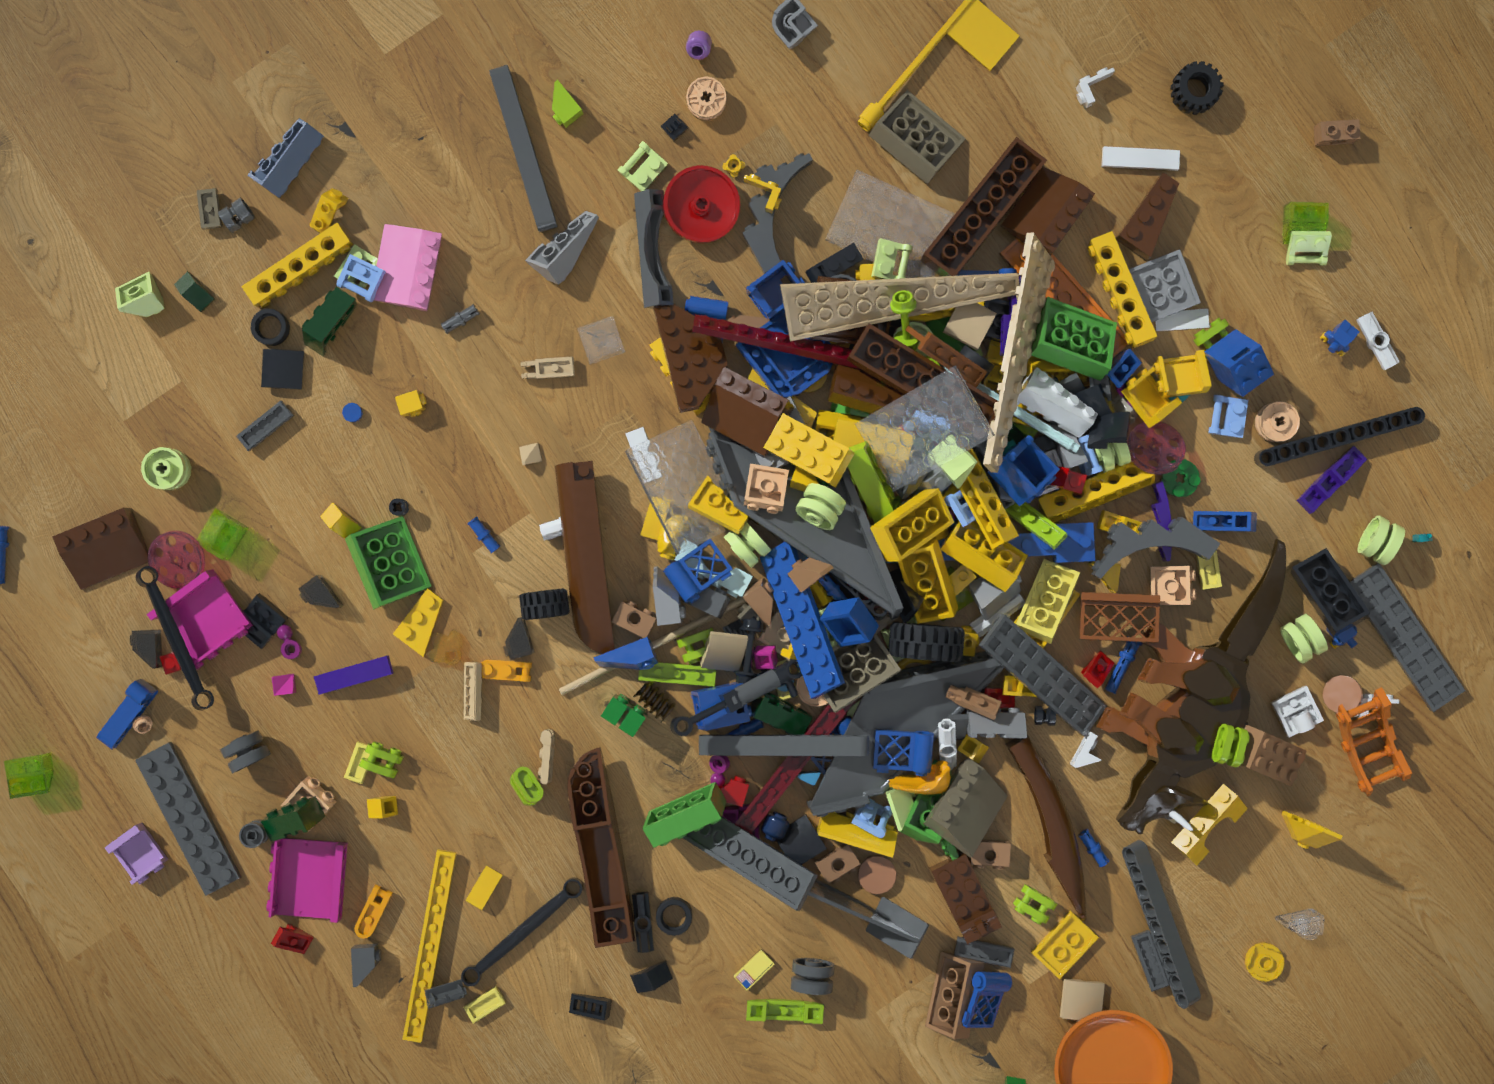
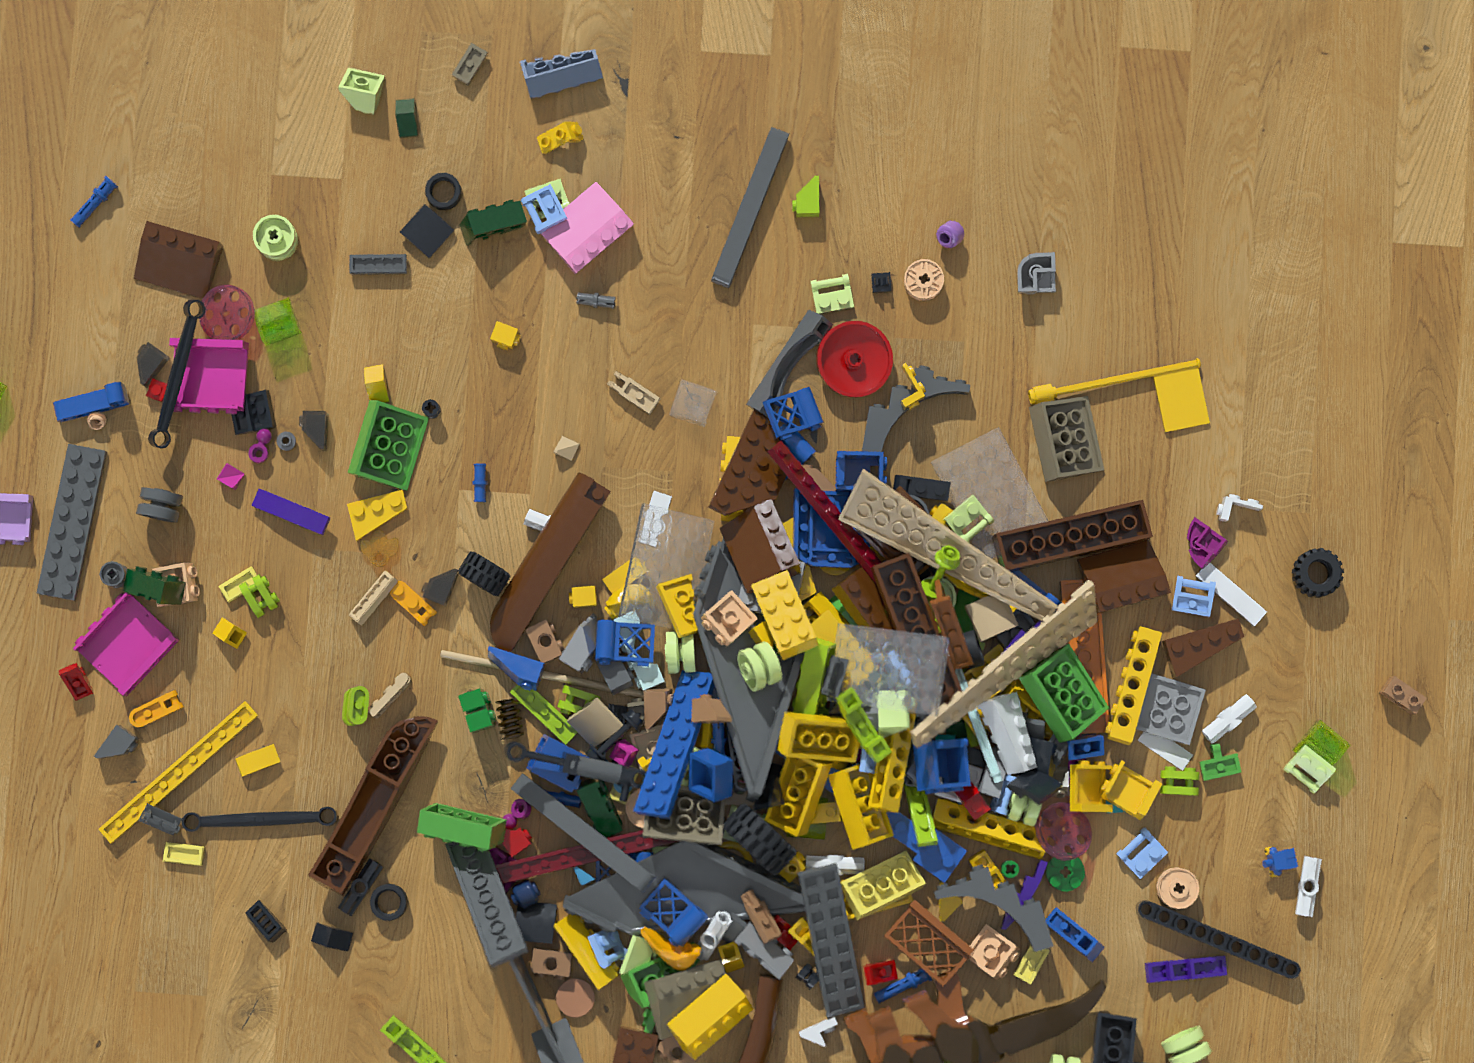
camera: 40 degrees right, 5 degrees down
(243, 214) = (493, 87): dark grey wheel -> none
(255, 286) = (455, 152): yellow brick -> none
(311, 622) = (292, 441): none -> flat silver plate
(352, 412) = (454, 307): blue tile -> none
(559, 256) = (713, 311): light grey wedge -> none
(636, 560) = (583, 597): none -> yellow brick
(693, 276) = (804, 409): none -> blue piece
(728, 165) = (908, 345): yellow plate -> none
(754, 969) = (417, 996): light yellow tile -> none
(812, 976) = (460, 1036): dark grey wheel -> none
(886, 467) = (834, 676): none -> dark grey hinge
(939, 491) = (861, 726): none -> lime slope
(990, 598) = (839, 849): light grey slope -> none
(995, 809) = (710, 1017): none -> yellow slope
(1088, 134) = (1204, 543): none -> magenta brick
(1117, 188) = (1191, 602): none -> light blue plate
(1139, 505) = (1015, 869): none -> green bush
(1215, 258) = (1229, 718): none -> white piece
(1235, 300) = (1219, 765): none -> bright green plate
(1239, 362) = (1180, 815): blue container -> none

